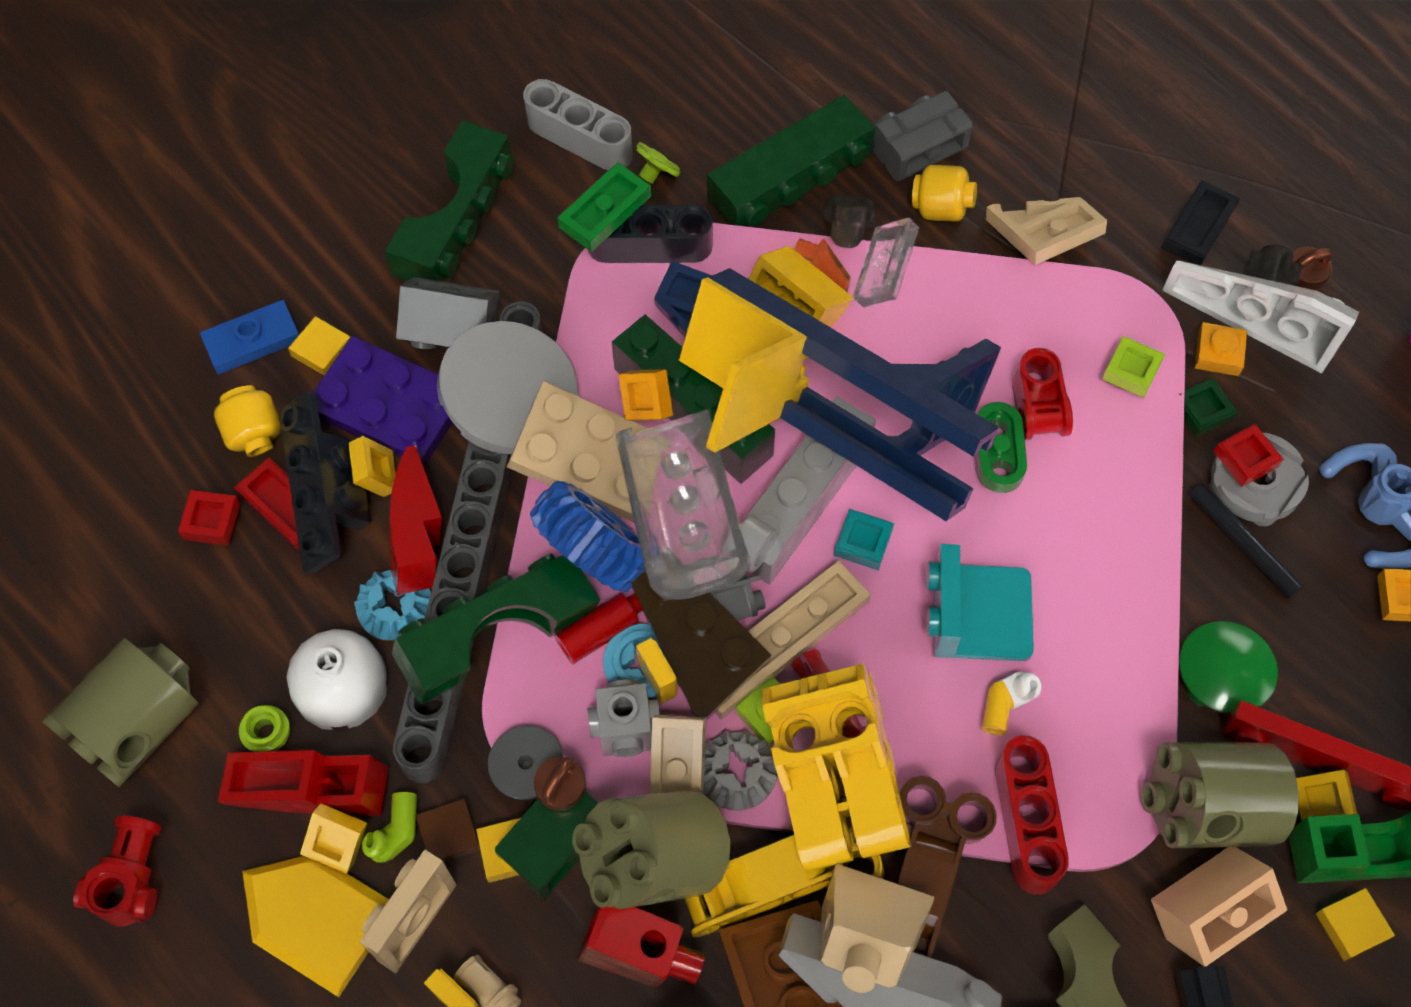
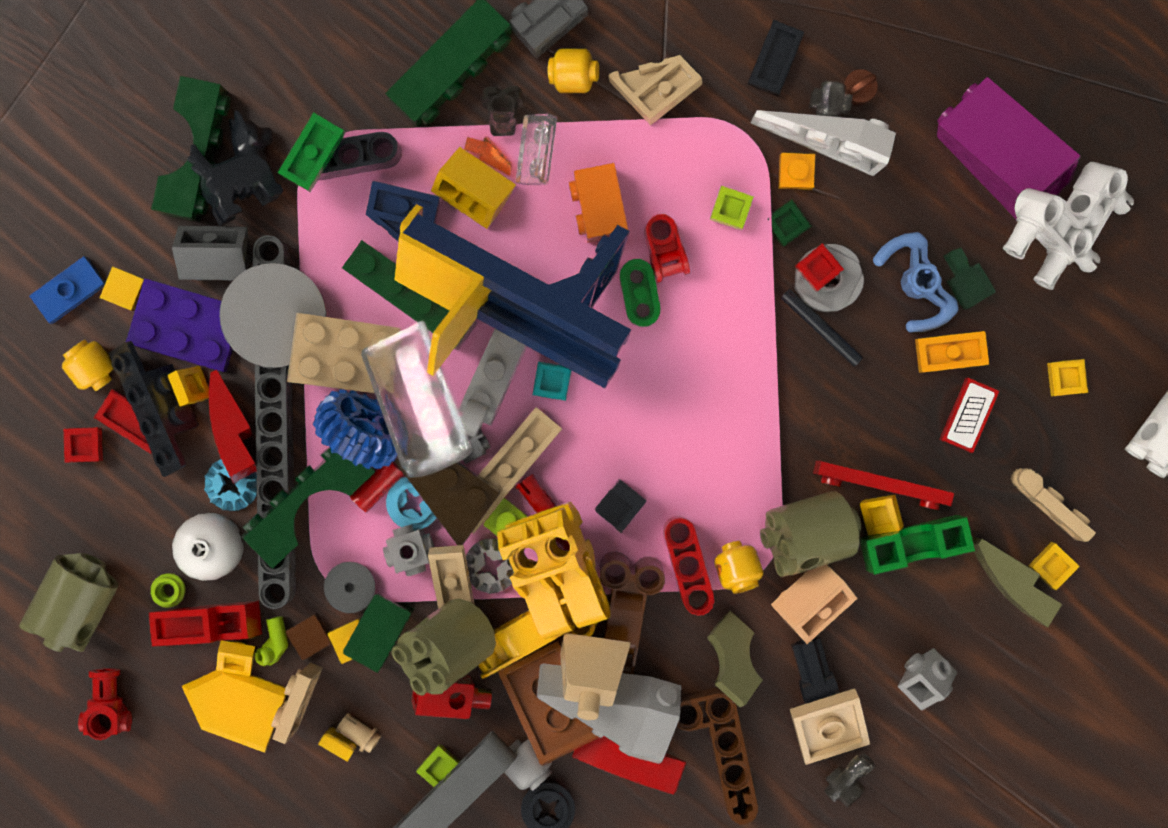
camera: 15 degrees left, 25 degrees up
(506, 234) = (239, 176): none -> black animal
(559, 783) = (375, 604): copper tile -> none
(577, 124) = (260, 45): light grey beam -> none
(645, 394) = (375, 310): light orange plate -> none
(655, 163) = (343, 78): lime plant -> none
(657, 670) = (424, 517): yellow tile -> none
(941, 713) = (620, 505): none -> black panel
(956, 318) = (599, 201): none -> orange brick
(979, 609) = (639, 424): teal bracket -> none
(1006, 696) = (665, 481): arm -> none
(1107, 831) = (738, 567): none -> yellow head
(1227, 665) = (814, 428): green dish -> none
(1355, 924) = (903, 590): yellow tile -> none

